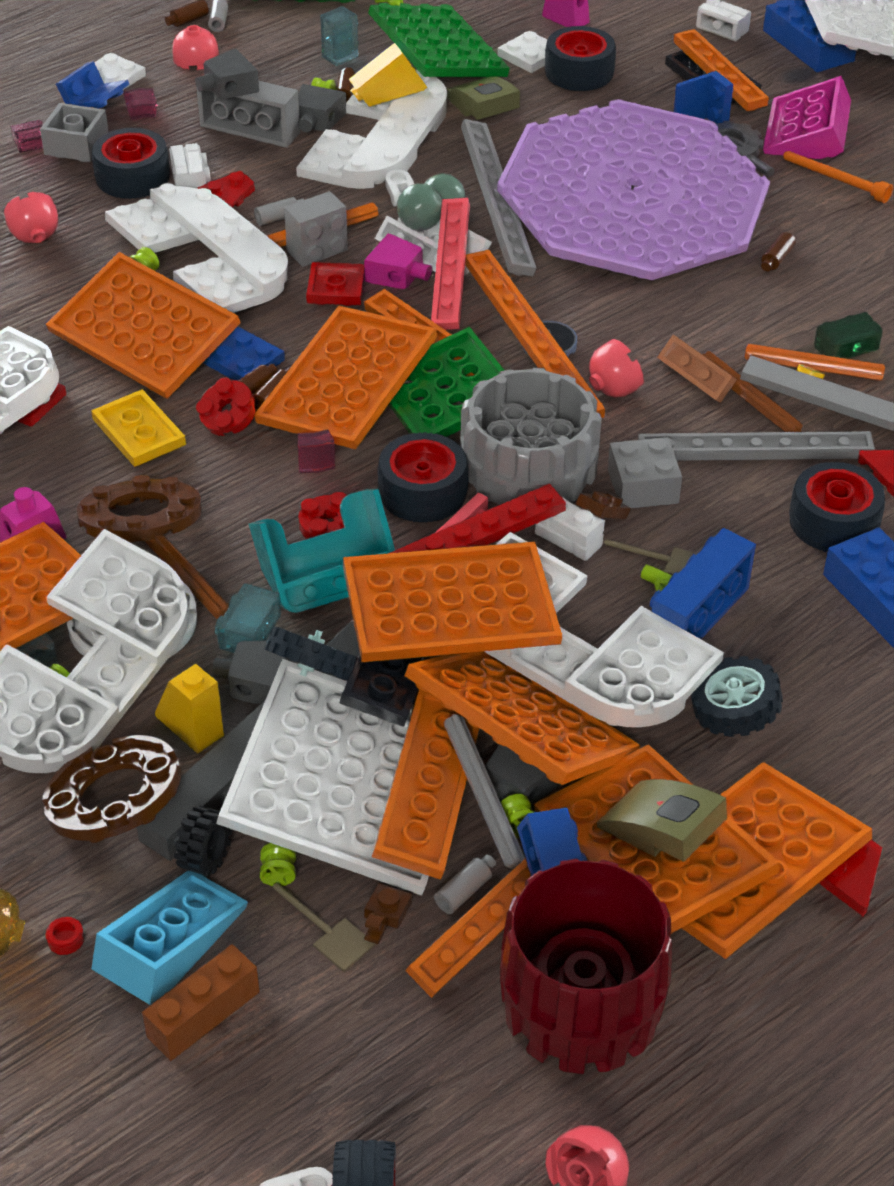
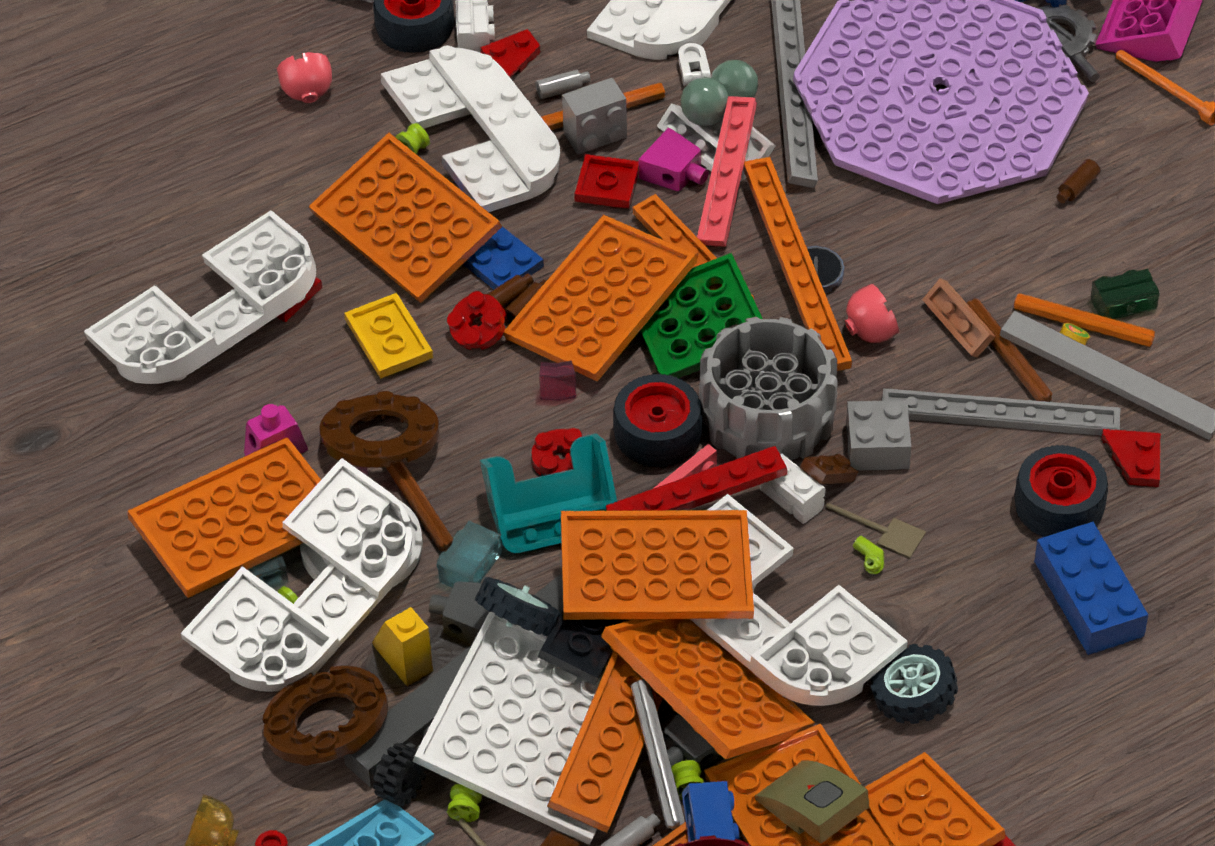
camera: 10 degrees right, 5 degrees up
(707, 584) = (908, 569): blue brick -> none

